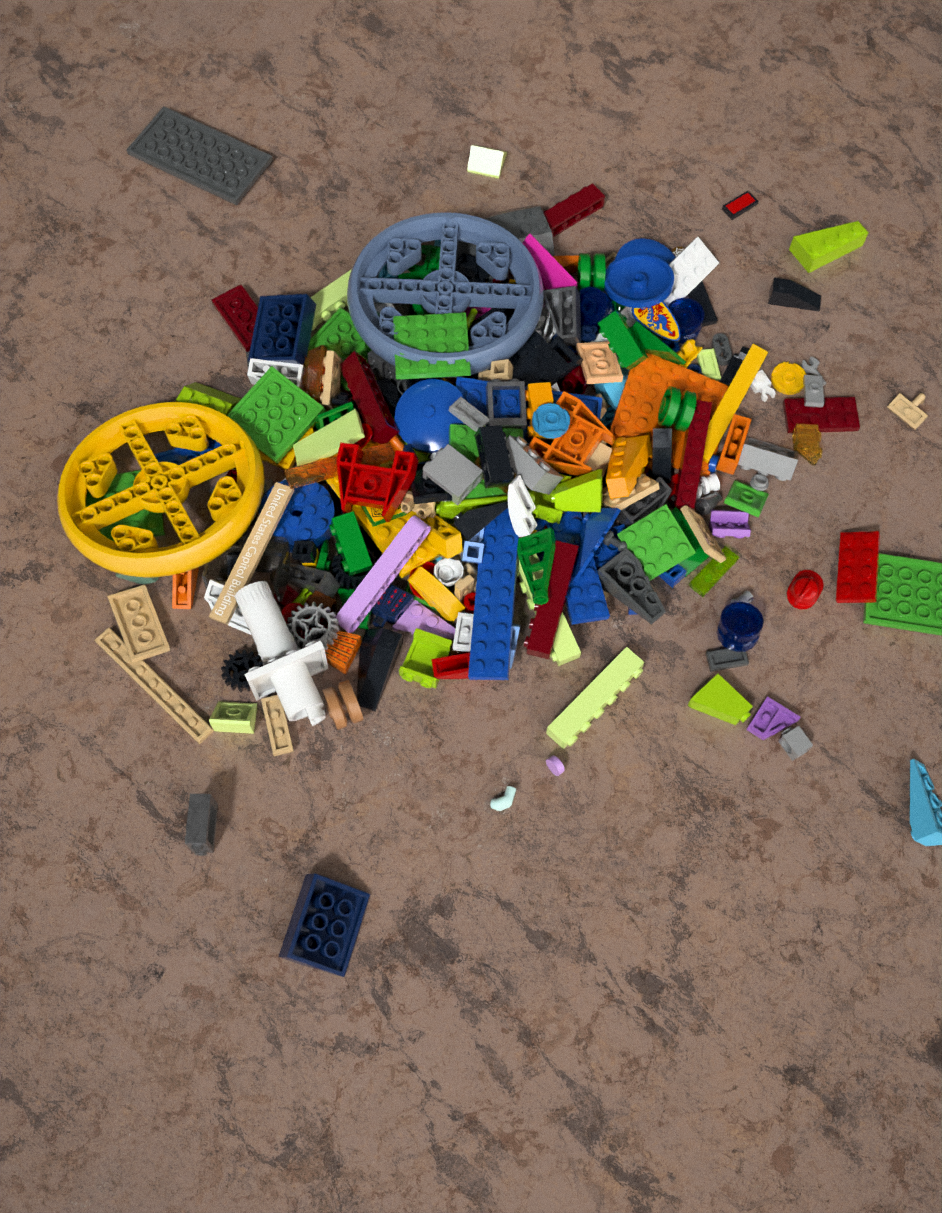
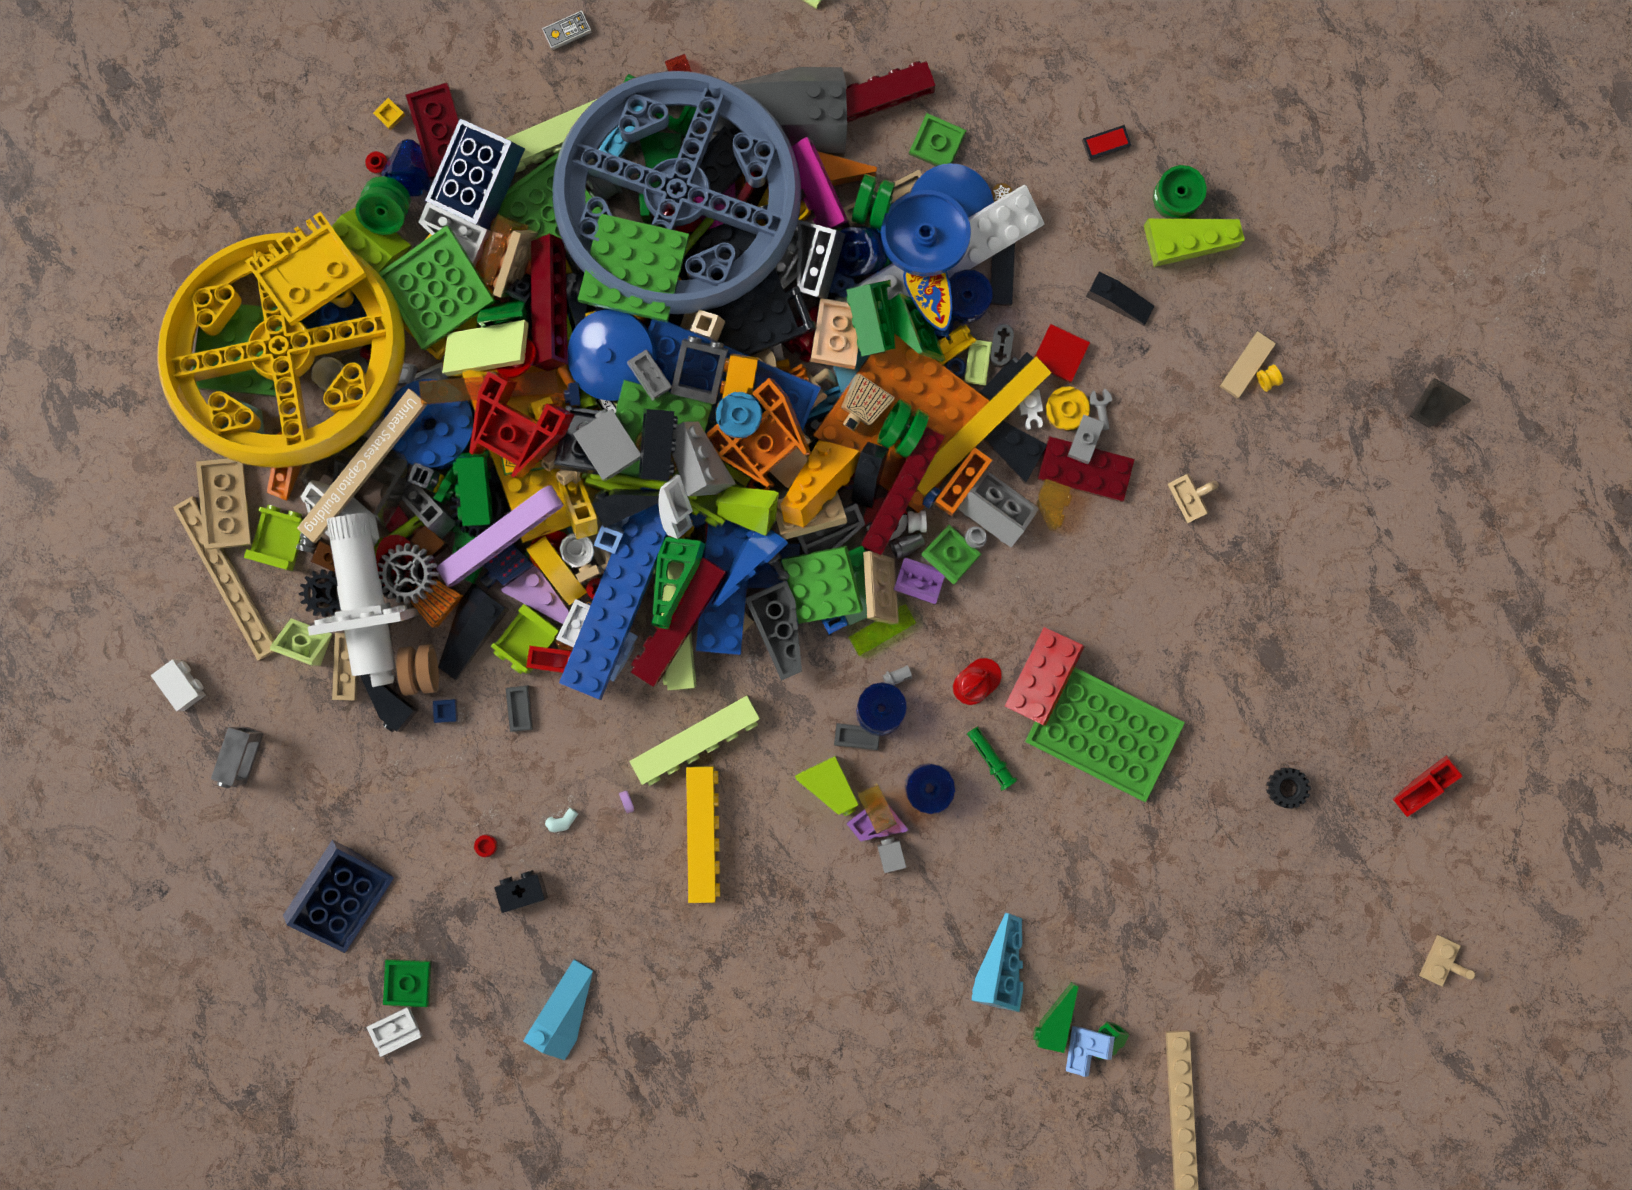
camera: 20 degrees right, 20 degrees up
(132, 781) = (178, 684): none -> white brick
(169, 422) = (307, 271): none -> yellow hinge
(190, 639) = (276, 538): none -> lime panel
(198, 502) = (325, 371): none -> white hair
(201, 316) = (389, 114): none -> yellow plate
(203, 354) = (376, 169): none -> red plate
(205, 371) = (383, 205): none -> green wheel
(219, 635) = (306, 544): none -> dark grey wheel
(227, 348) = (408, 167): none -> clear blue cone
(239, 640) = (323, 556): none -> reddish brown brick
(320, 233) = (566, 30): none -> tile
(326, 745) = (389, 705): none -> black slope
(374, 736) = (445, 711): none -> dark blue plate
(409, 987) = (407, 983): none -> green tile
(412, 1035) = (394, 1031): none -> white plate
(437, 717) = (519, 708): none -> dark grey tile
(443, 841) = (485, 845): none -> red tile
(483, 879) = (510, 899): none -> black brick
(560, 976) = (561, 1017): none -> medium azure wedge
(617, 233) = (937, 141): none -> bright green tile
(629, 773) = (701, 834): none -> yellow brick
(639, 399) = (864, 402): none -> tan torso
(763, 414) = (1016, 448): none -> black wing
(769, 702) = (877, 808): none -> clear yellow slope
(770, 340) = (1061, 352): none -> red tile
(804, 677) = (942, 792): none -> clear blue wheel
(806, 216) = (1179, 192): none -> green wheel
(851, 647) = (997, 767): none -> green pin
(906, 315) = (1247, 365): none -> tan tile
(927, 317) = (1269, 378): none -> yellow wheel

